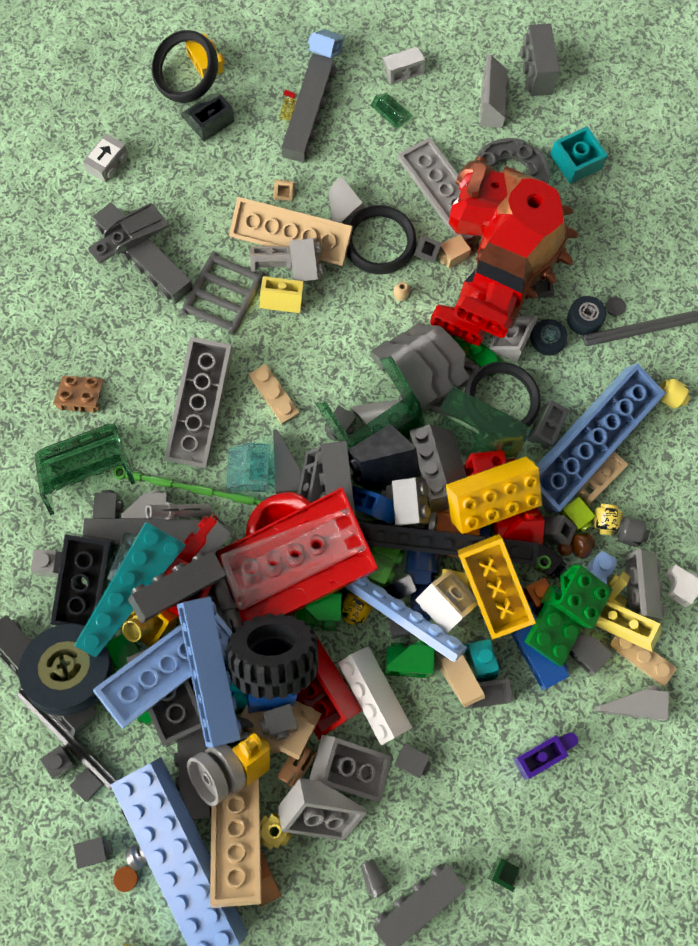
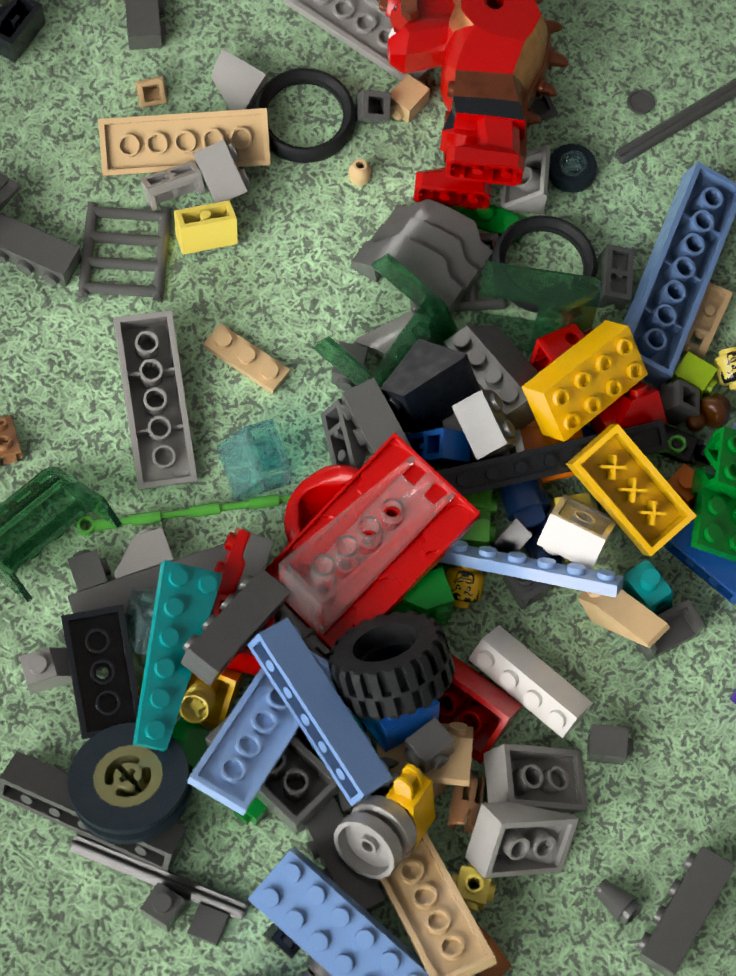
camera: 20 degrees left, 5 degrees down
(172, 510) = (177, 545): light grey pin -> none
(286, 469) = (303, 445): dark grey slope -> none
(409, 661) = (560, 625): green slope -> none
(586, 323) = (606, 135): black wheel -> none

